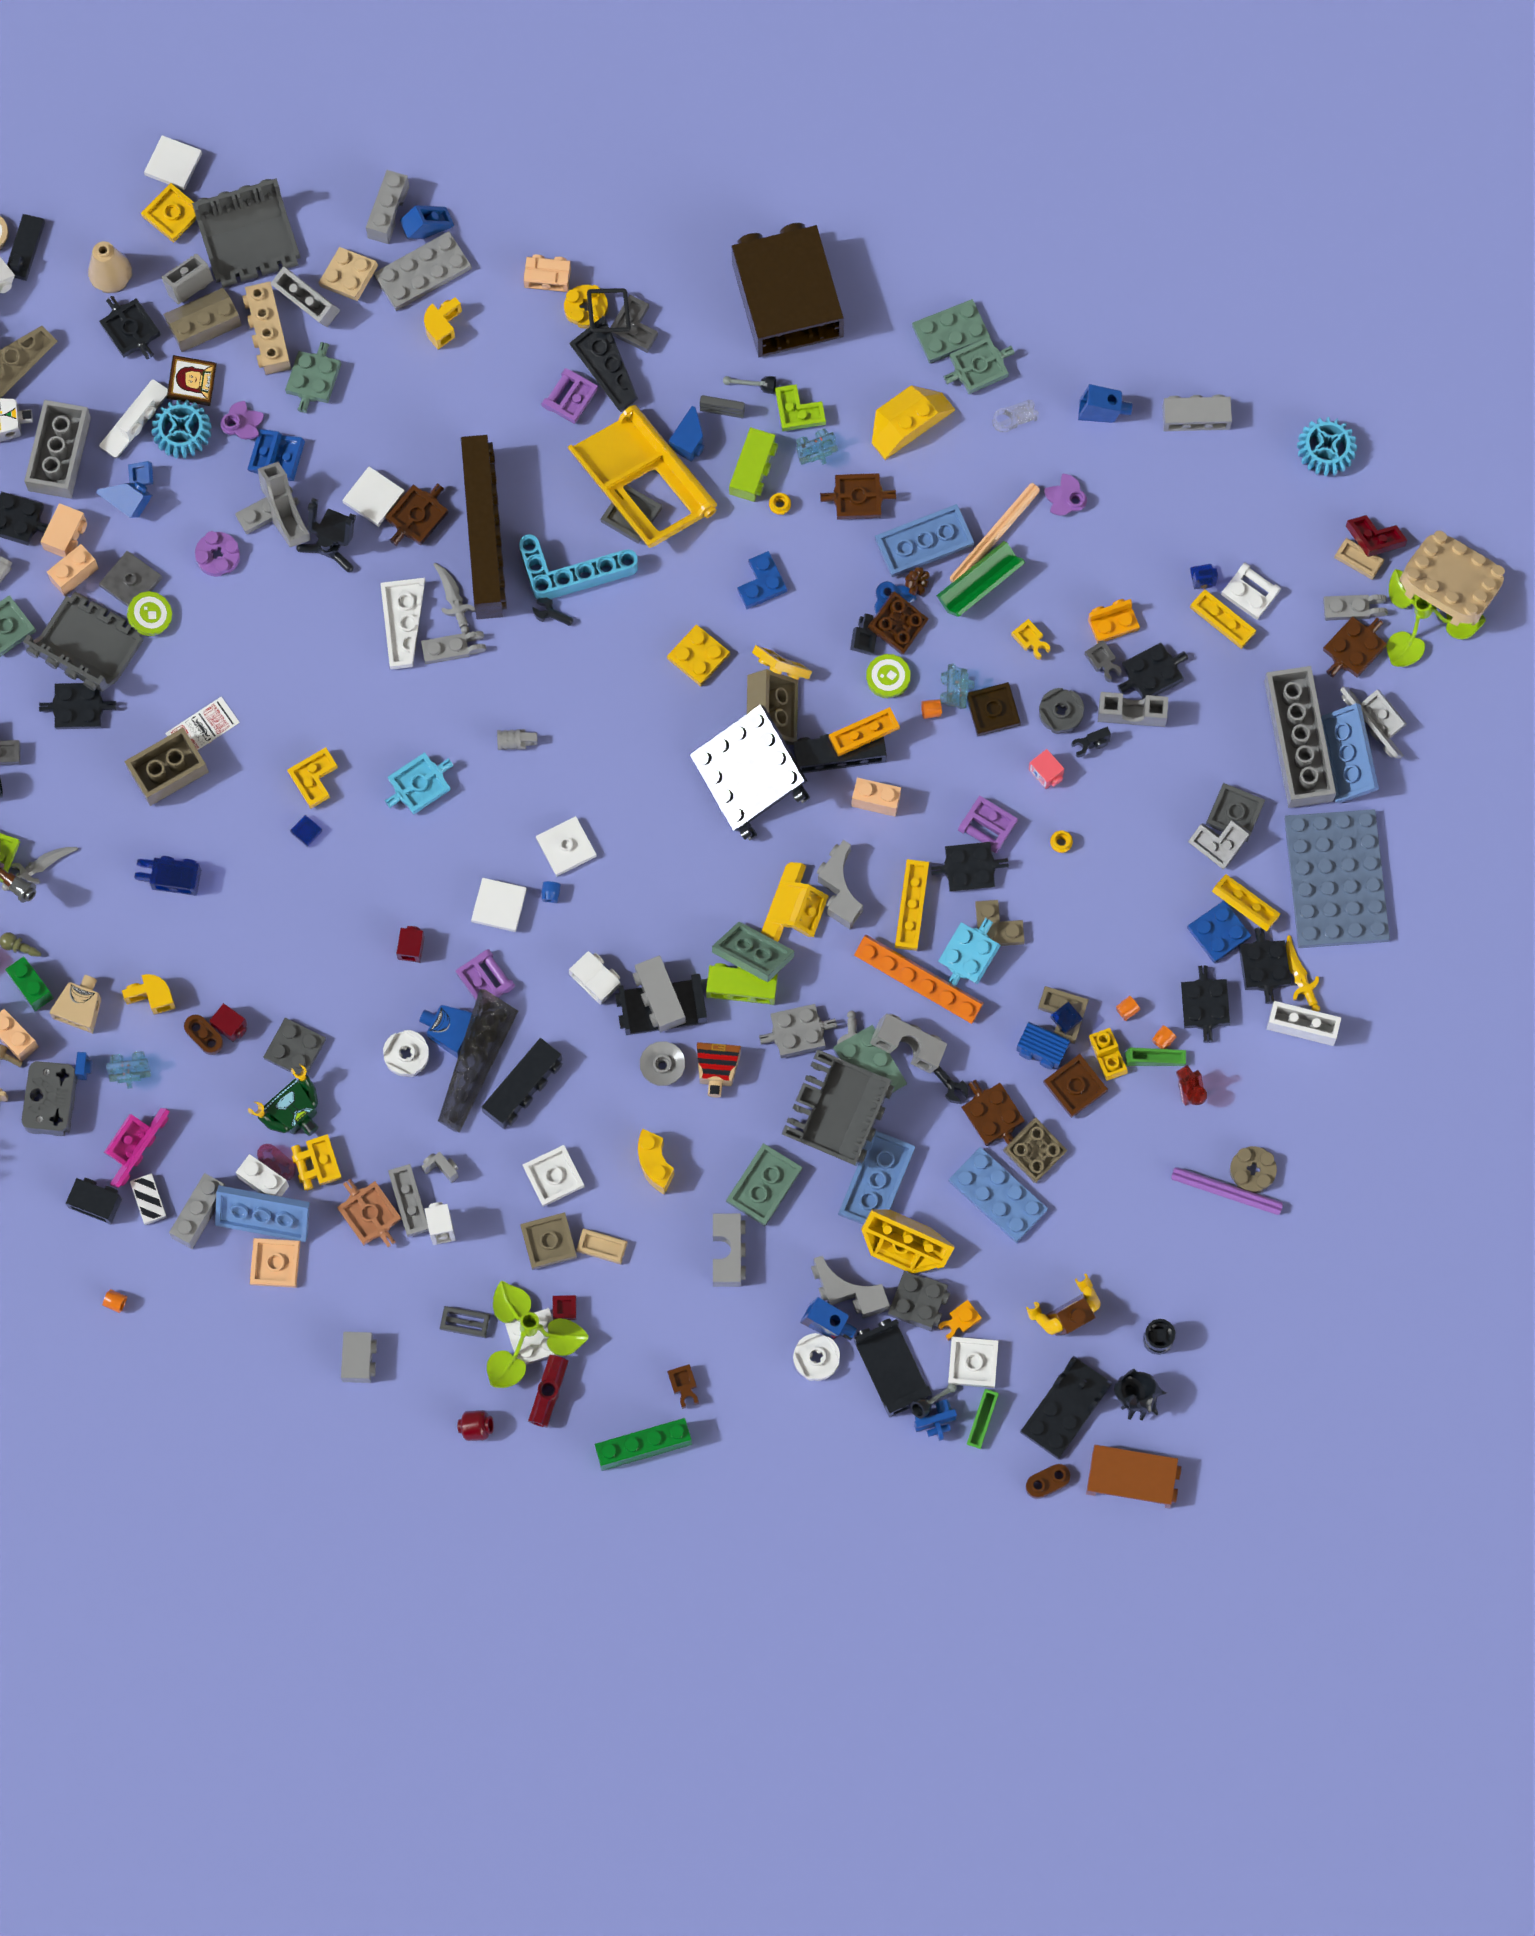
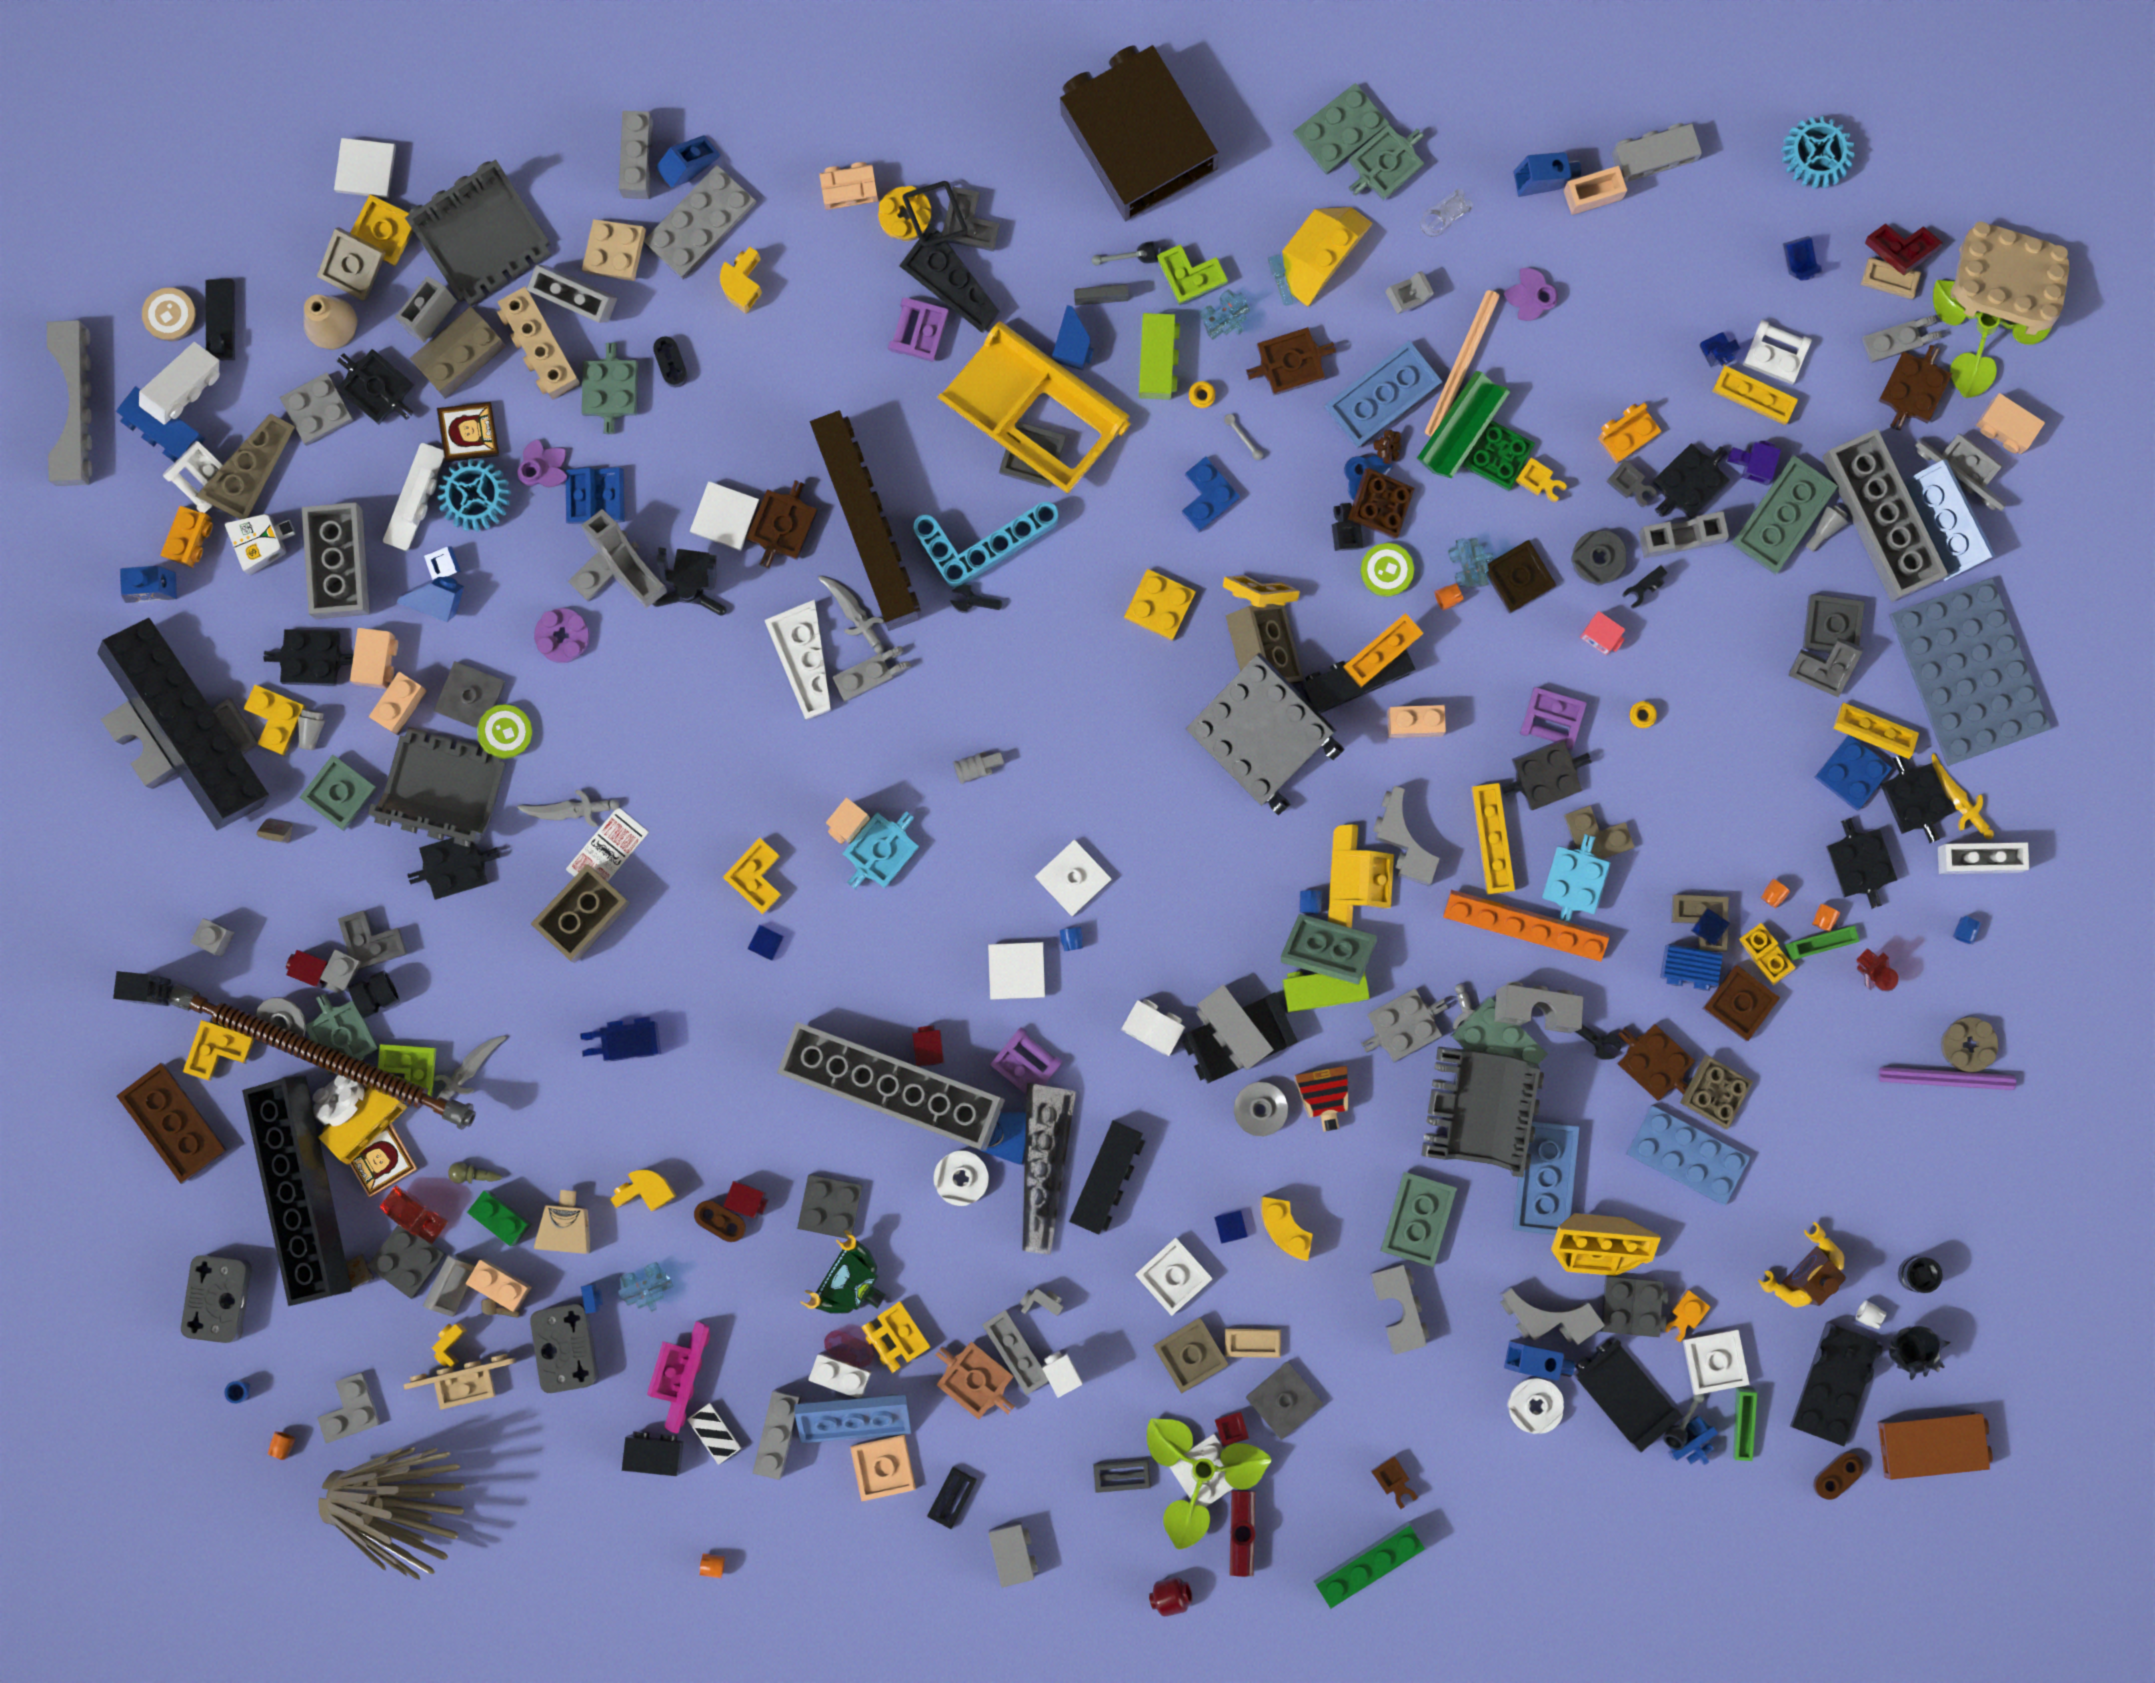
camera: 15 degrees left, 10 degrees up
(78, 333) = (316, 409): none -> light grey plate
(139, 230) = (351, 264): none -> dark tan plate
(183, 688) = (570, 809): none -> light grey piece
(315, 1321) = (962, 1476): none -> black tile
(371, 369) = (664, 364): none -> black beam
(371, 962) = (891, 1086): none -> light grey brick
(398, 751) = (847, 822): none -> light nougat brick
(611, 1151) = (1230, 1227): none -> clear blue tile
(613, 1298) = (1284, 1400): none -> flat silver plate
(750, 914) = (1310, 901): none -> blue hose
(797, 530) = (1230, 421): none -> light grey hinge
(868, 430) = (1277, 270): none -> clear light blue bar
(968, 468) = (1410, 293): none -> light grey bracket
(1003, 611) = (1499, 455): none -> green tile
(1110, 1360) = (1870, 1314): none -> white hose
(1138, 428) = (1595, 190): none -> light nougat brick
(1209, 671) = (1758, 463): none -> dark purple brick
(1220, 717) = (1784, 515): none -> sand green plate
(1255, 733) = (1831, 522): none -> light grey cone
(1276, 1078) = (1967, 930): none -> blue hose
(1290, 523) = (1801, 258): none -> clear blue bracket
(1422, 694) = (2009, 424): none -> light nougat brick

